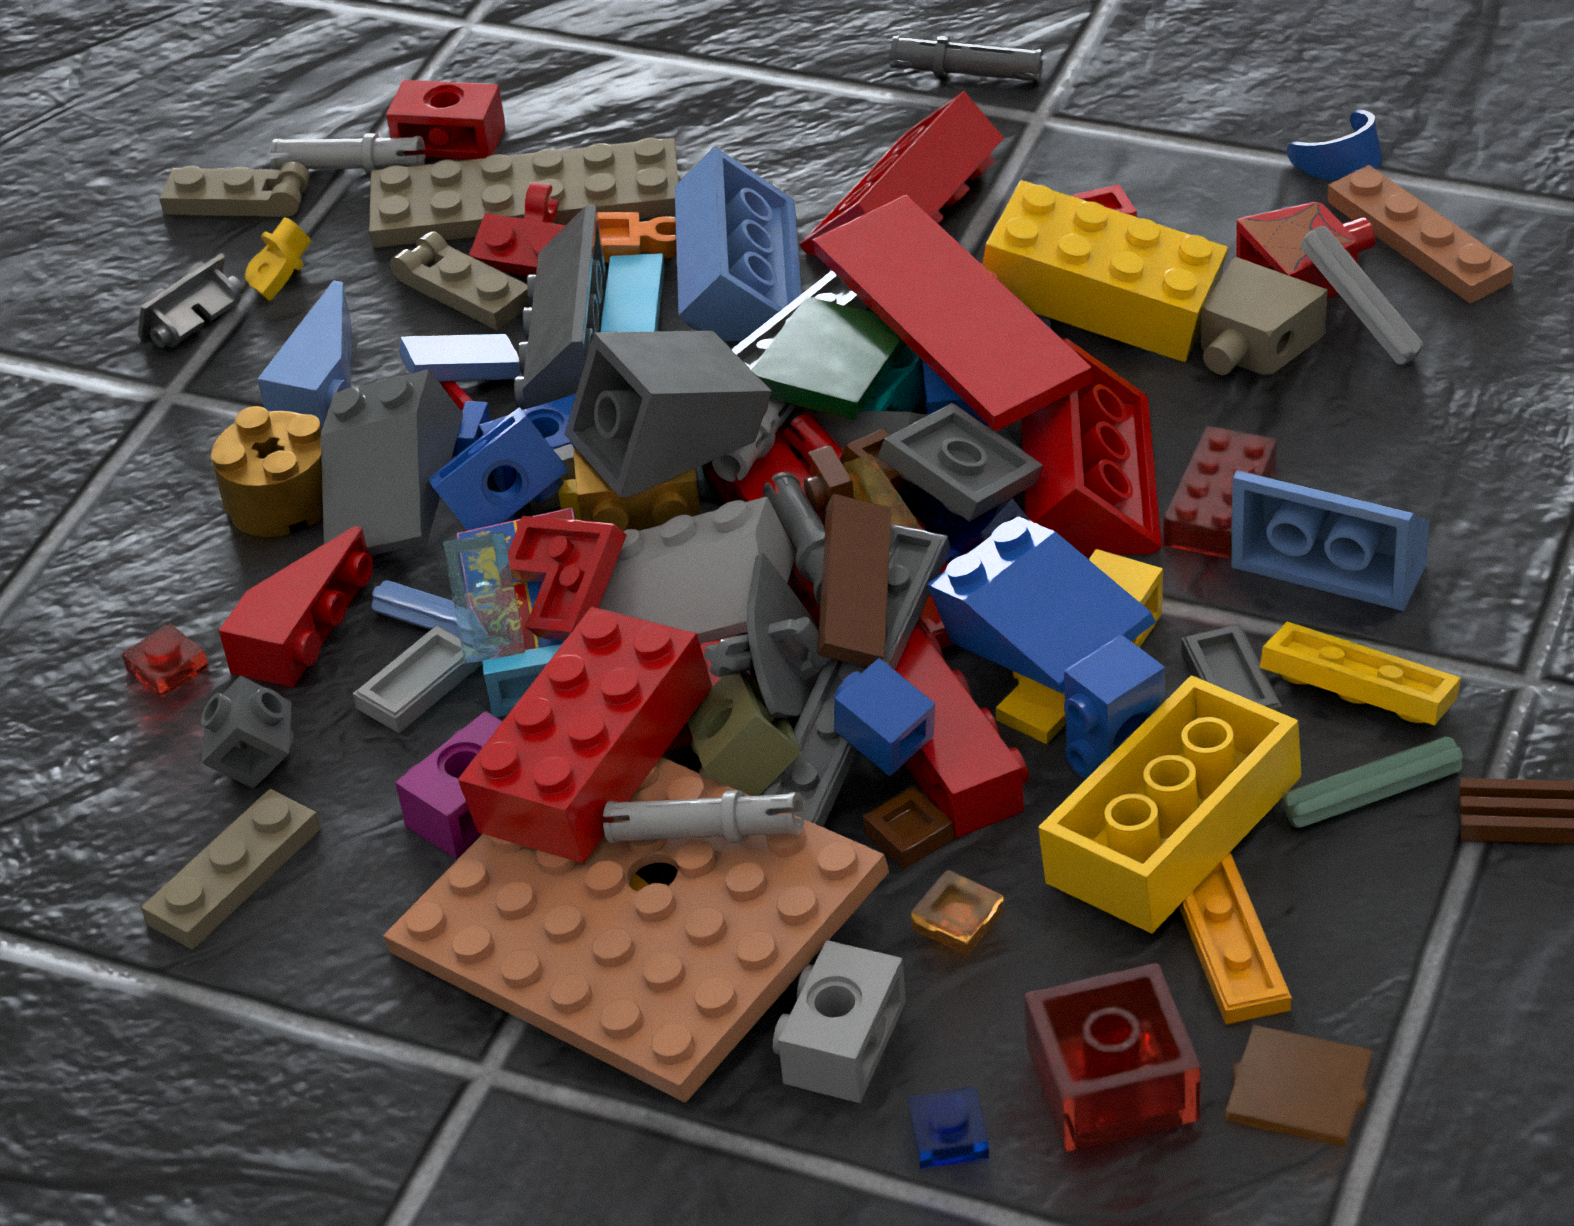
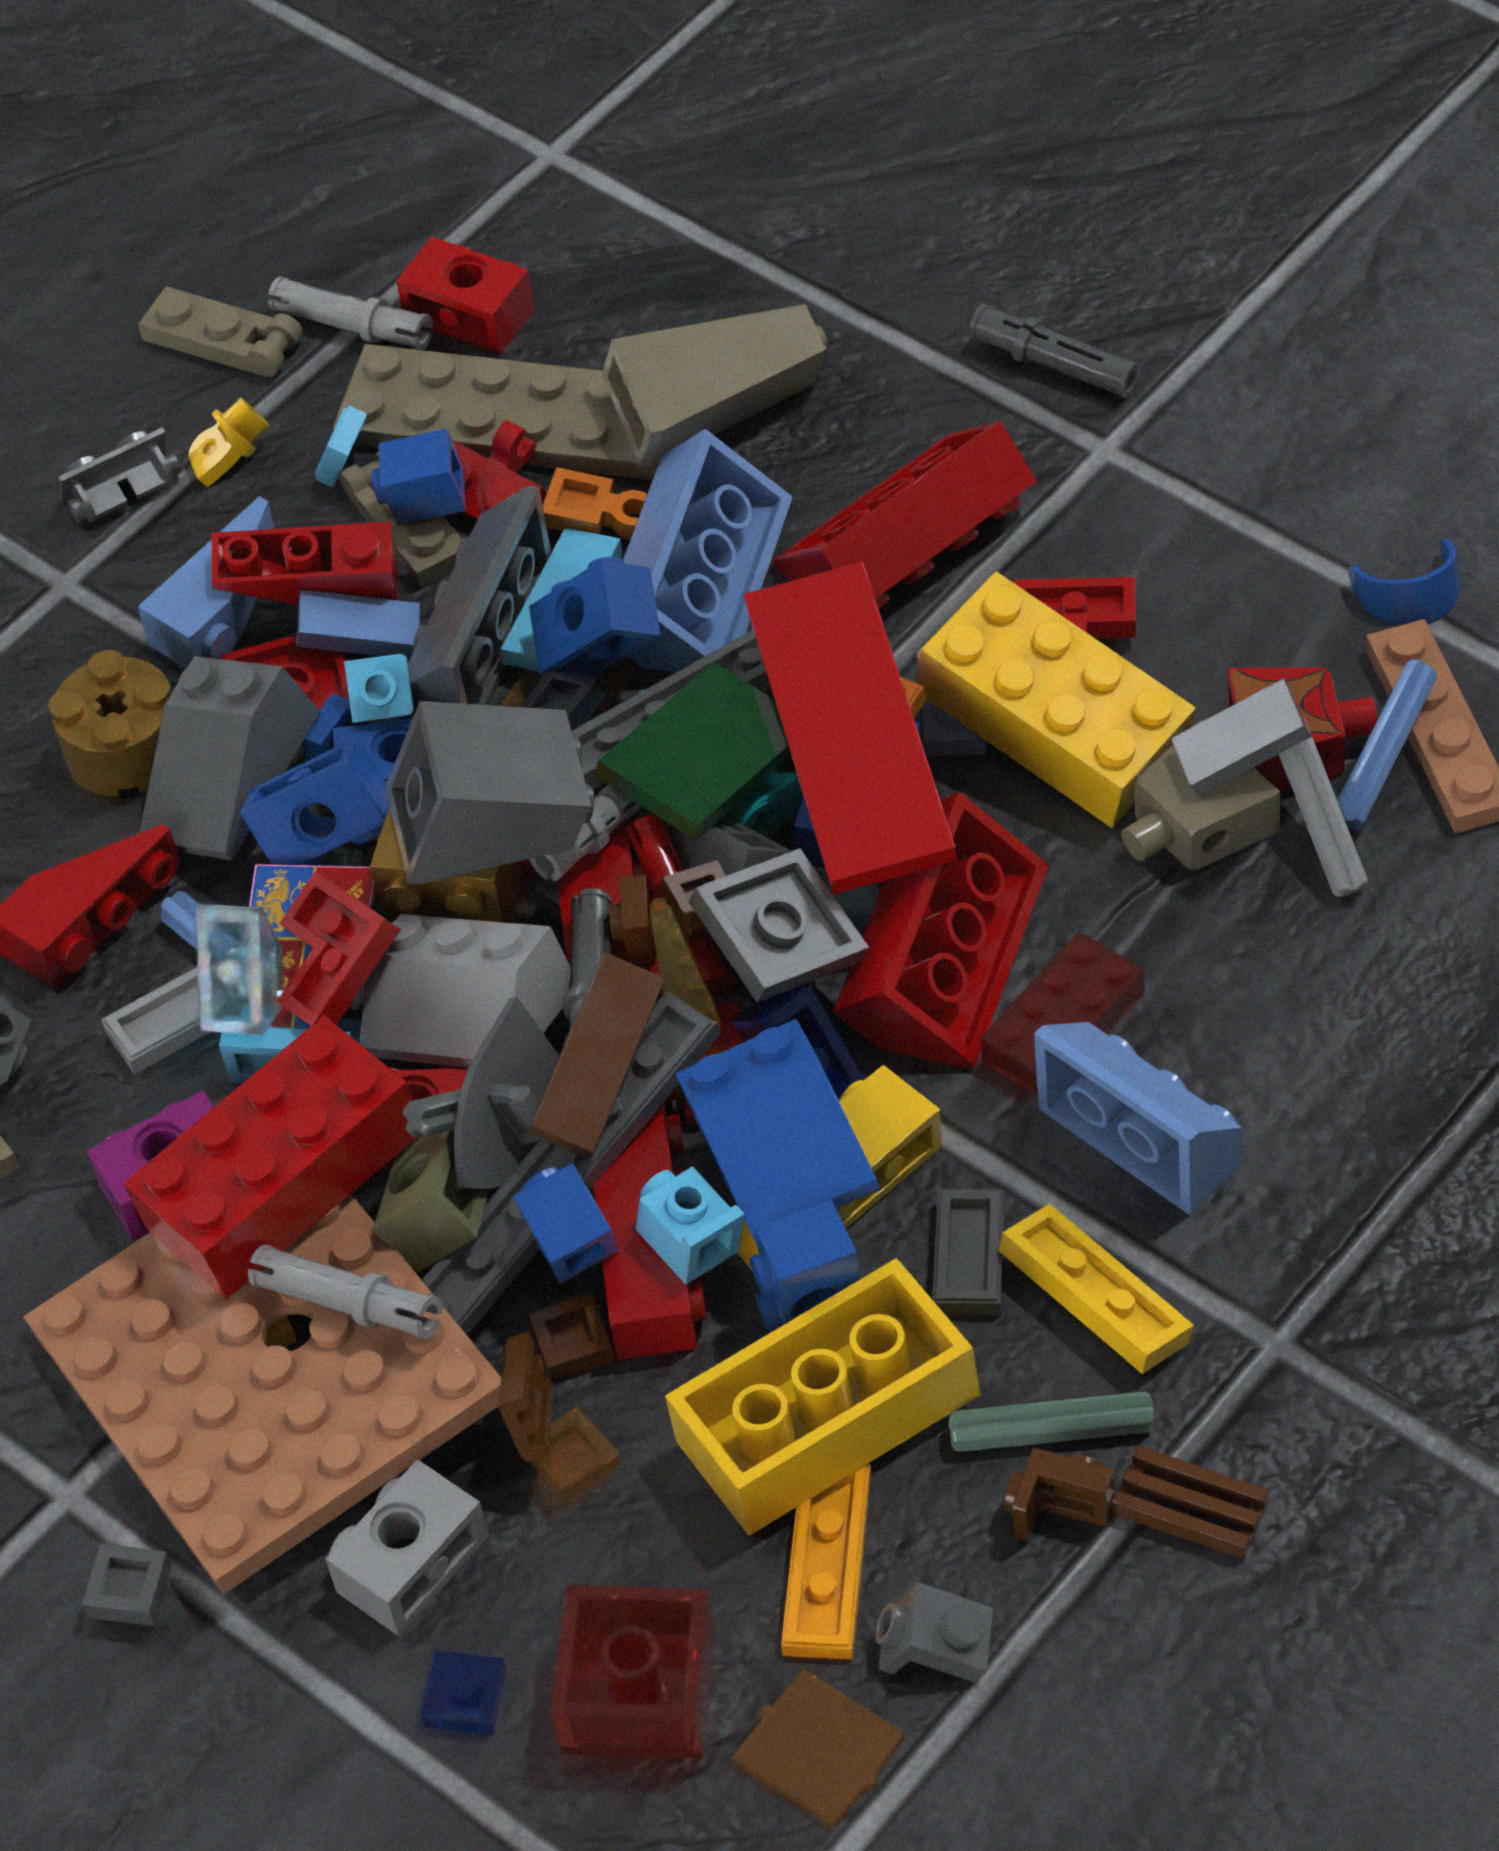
camera: 20 degrees right, 10 degrees up
(383, 240) = (339, 445): none -> medium azure tile
(418, 307) = (325, 558): none -> red slope
(474, 235) = (420, 477): none -> blue brick
(510, 381) = (379, 688): none -> medium azure bracket
(584, 1122) = (127, 1584): none -> dark grey plate
(675, 123) = (709, 375): none -> dark tan slope
(685, 286) = (595, 618): none -> blue brick
(905, 868) = (527, 1391): none -> reddish brown tile
(991, 694) = (688, 1223): none -> medium azure brick
(1284, 250) = (1241, 737): none -> tile
(1361, 958) = (935, 1632): none -> dark grey bracket
(1390, 238) = (1385, 742): none -> medium blue axle
(1416, 824) = (1061, 1485): none -> reddish brown bracket

